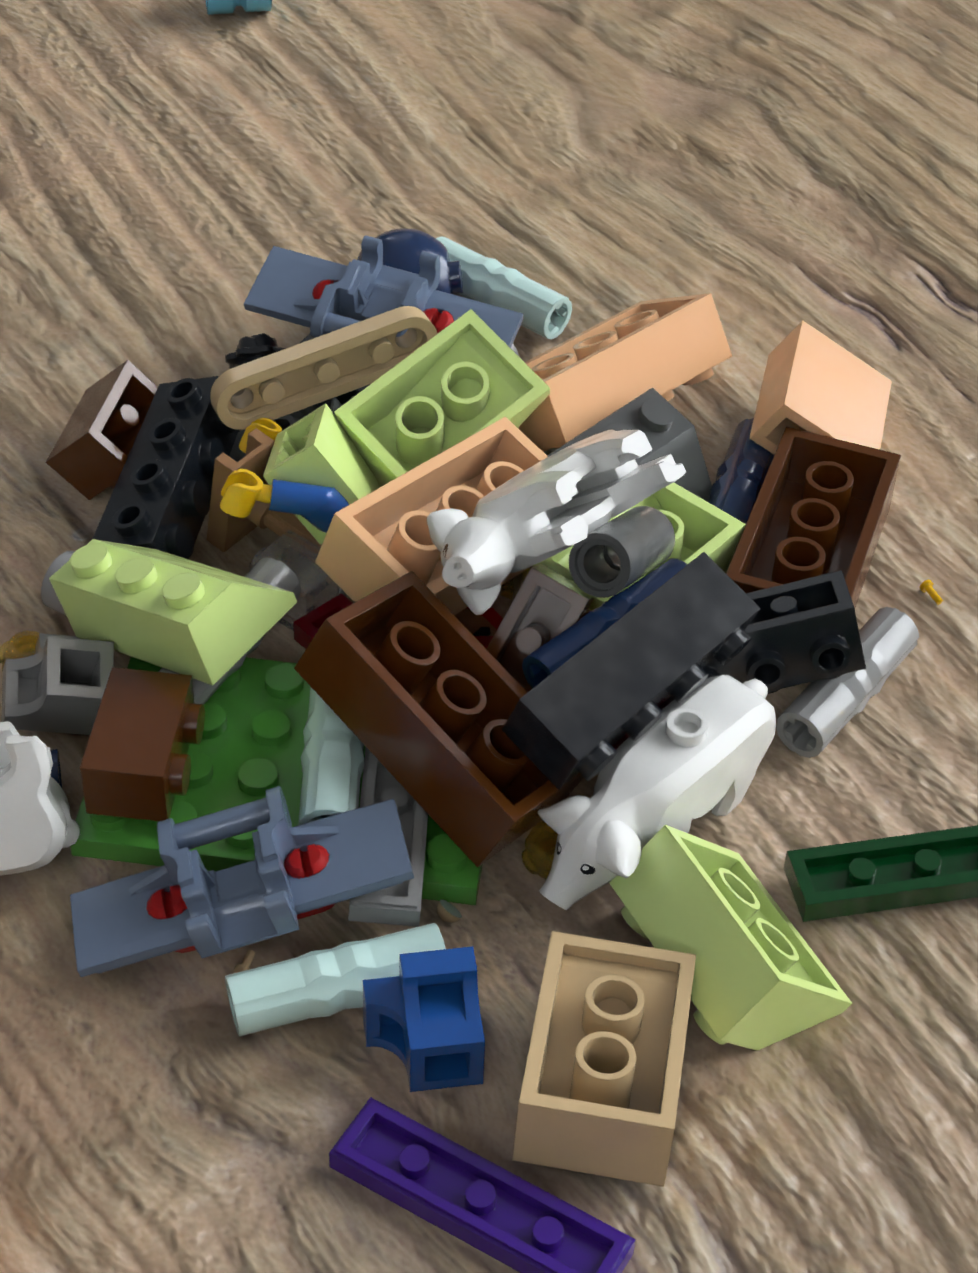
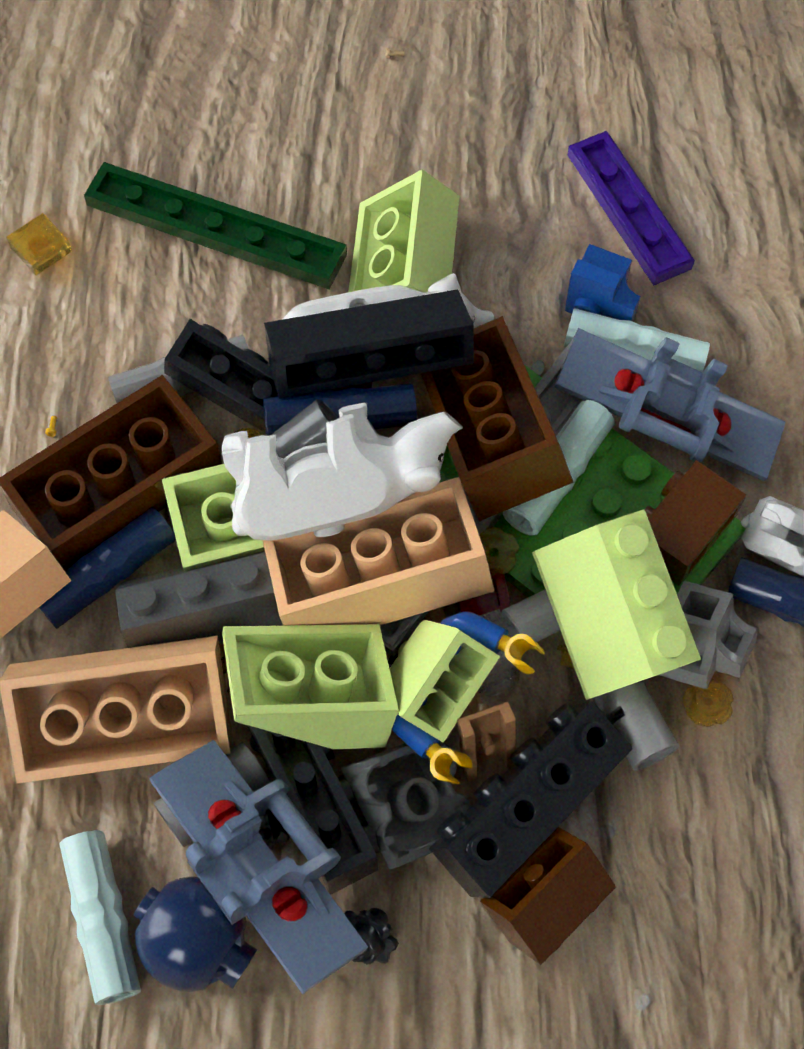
camera: 145 degrees left, 20 degrees up
(319, 368) = (343, 776): tan plate -> none
(605, 1059) = (529, 208): tan slope -> none

